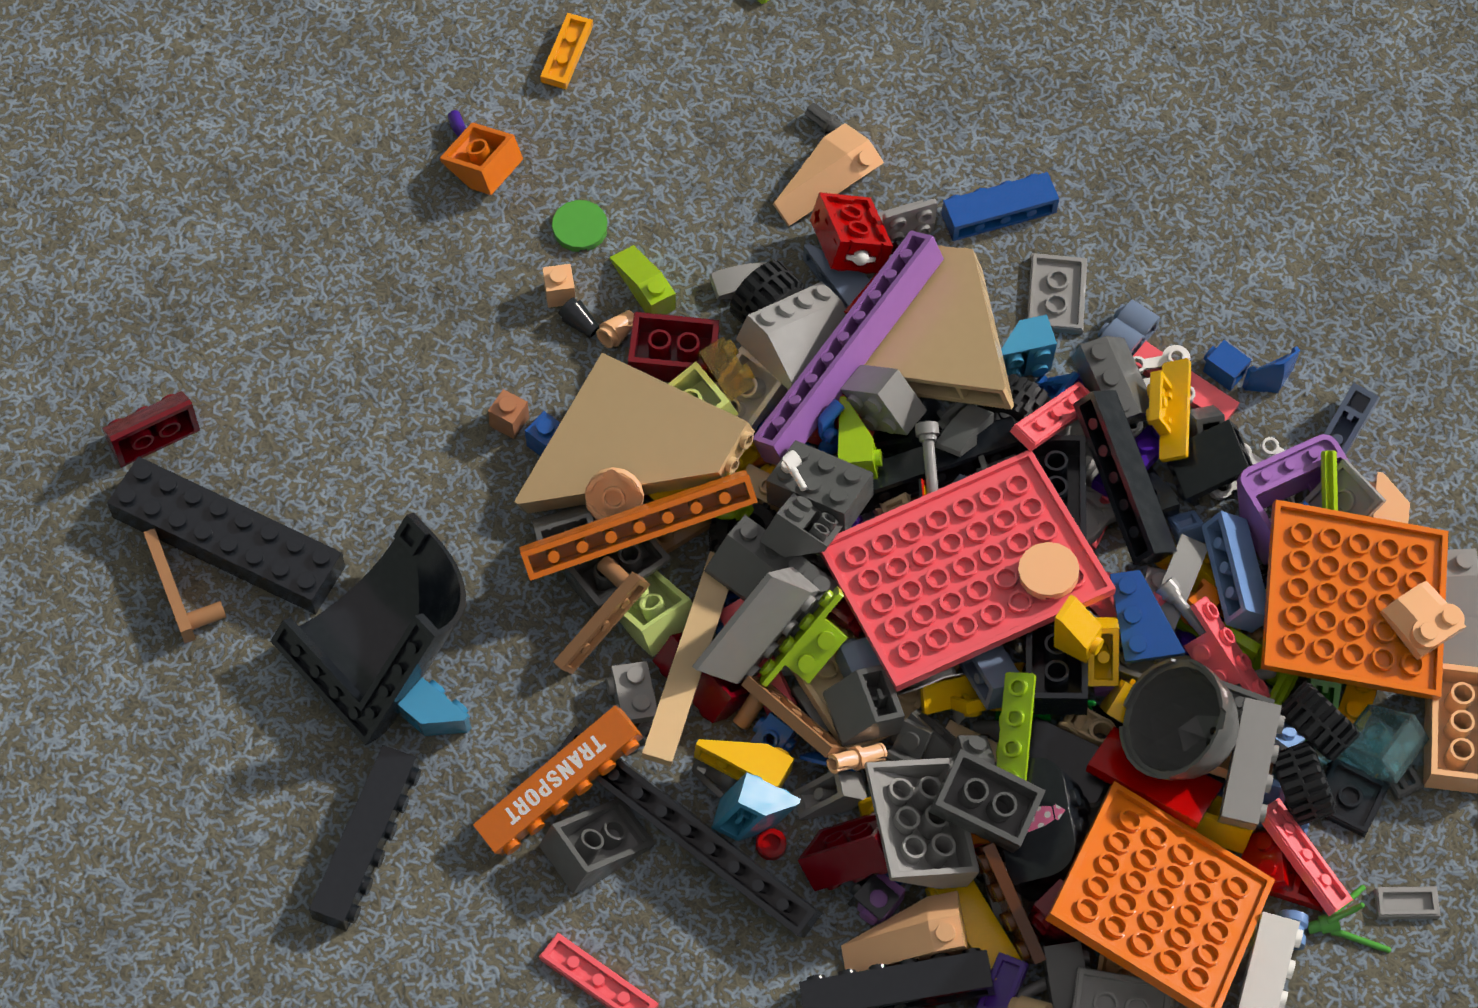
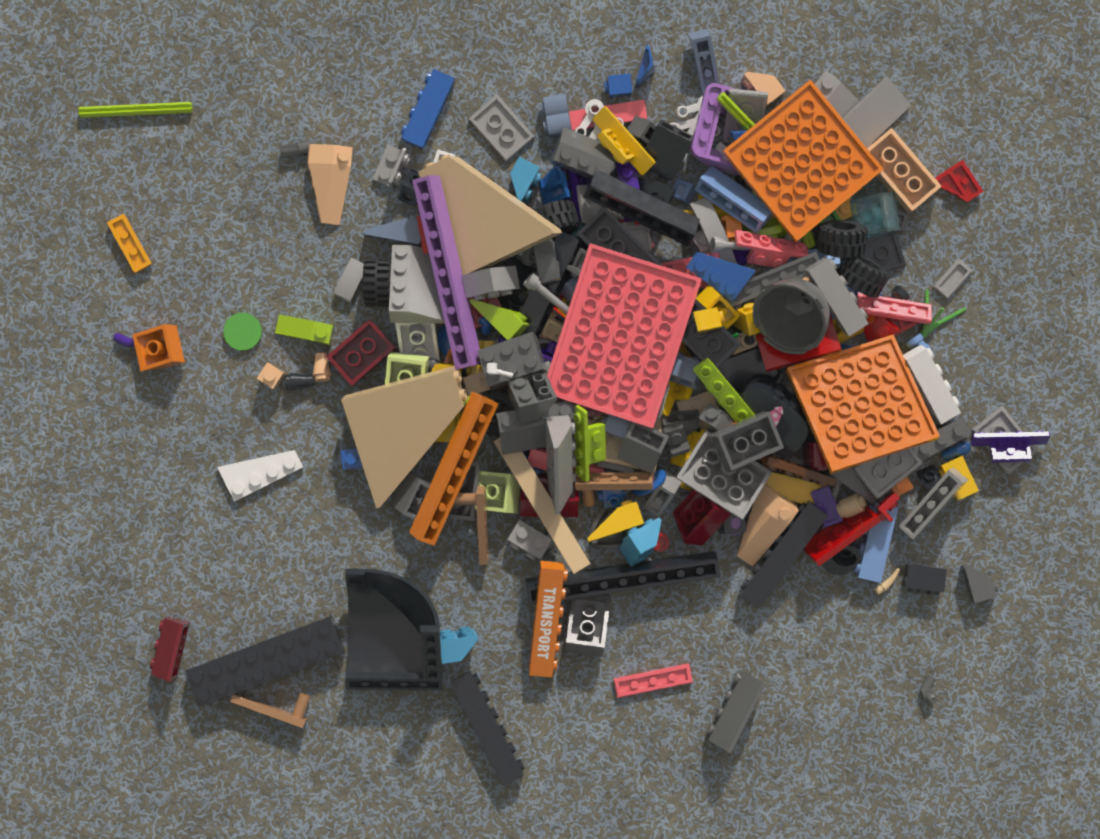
camera: 45 degrees left, 25 degrees up
(433, 360) = (254, 474): none -> white wing
(508, 414) = (322, 466): nougat brick -> none
(612, 492) = (423, 462): light nougat tile -> none
(726, 368) = (404, 345): clear yellow brick -> none
(826, 422) = (477, 321): blue arm -> none
(851, 233) = (380, 205): red piece -> none
(856, 757) = (663, 472): light nougat pin -> none
(1048, 570) = (664, 301): light nougat tile -> none
(1049, 418) = (579, 210): coral tile -> none
(1329, 852) = (900, 293): none -> black tile
(1423, 619) = (843, 140): light nougat slope -> none

